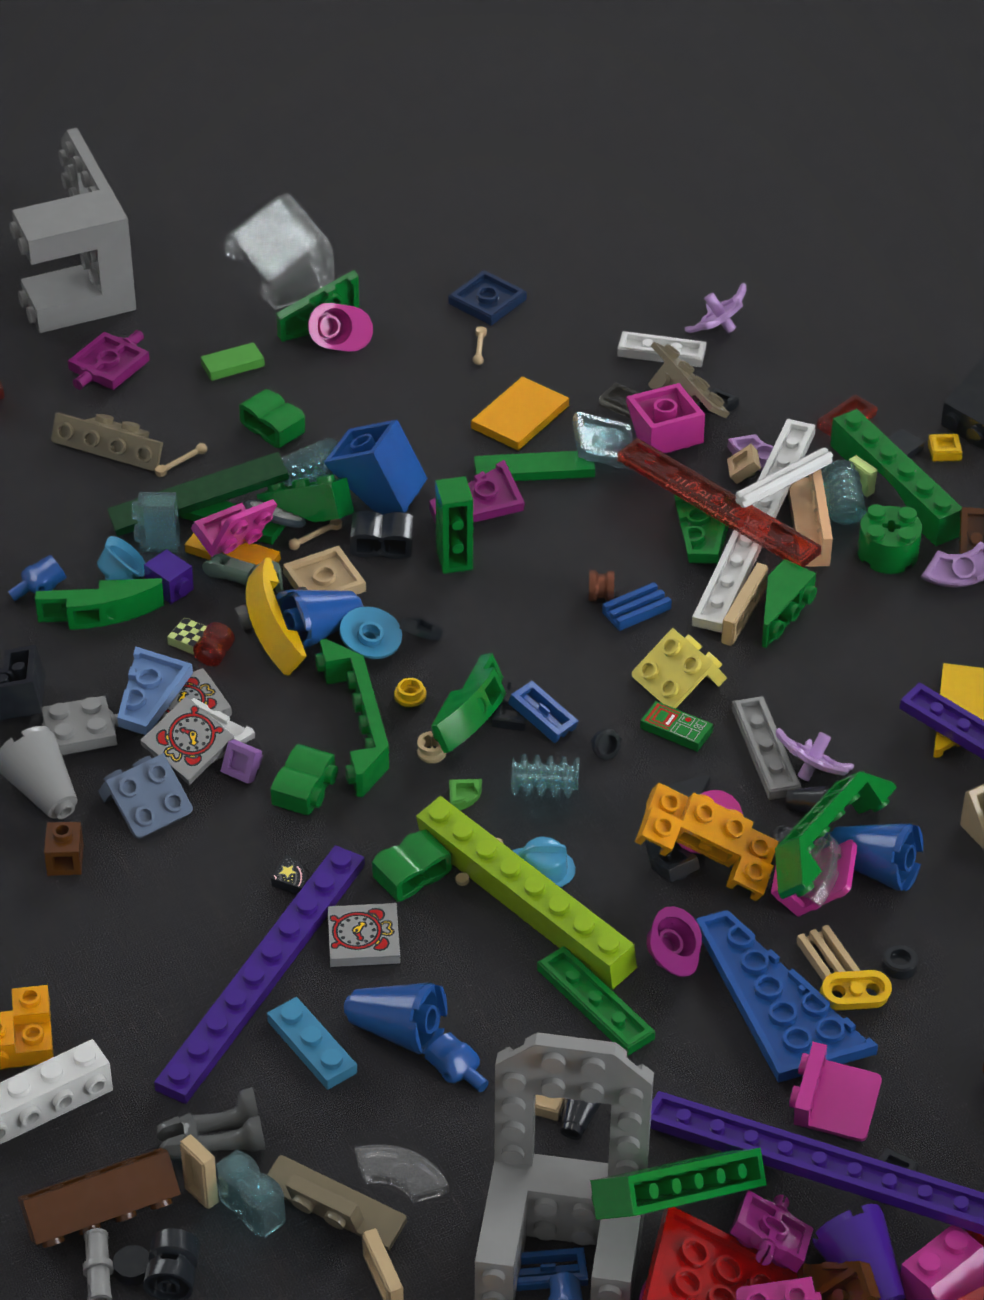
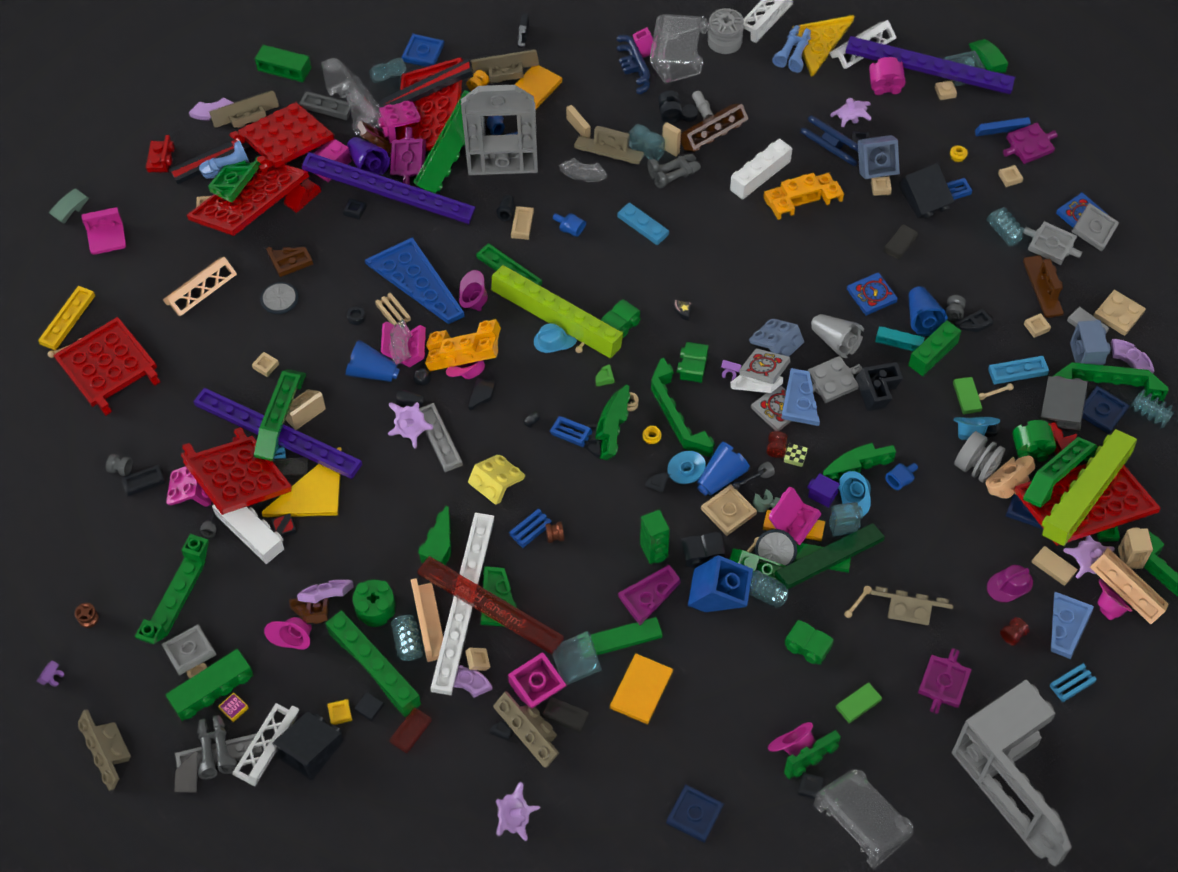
camera: 170 degrees right, 15 degrees up
(64, 848) = (805, 298): reddish brown brick -> none
(258, 975) = (678, 258): dark purple plate -> none
(267, 620) = (761, 472): yellow slope -> none
(363, 934) = (634, 282): light grey tile -> none
(400, 1013) = (604, 232): blue cone -> none
(480, 333) = (690, 773): tan hinge -> none
(545, 776) = (560, 384): clear light blue piece -> none
(639, 347) = (553, 779): white tile -> none
(676, 726) = (492, 441): green tile -> none
(744, 604) = (462, 534): tan tile -> none
(783, 477) = (446, 620): white axle -> none
(794, 863) = (399, 367): green slope -> none
(834, 1096) = (385, 231): dark pink bracket -> none
(853, 989) = (377, 289): yellow plate -> none
(867, 474) = (396, 661): yellowish green tile -> none

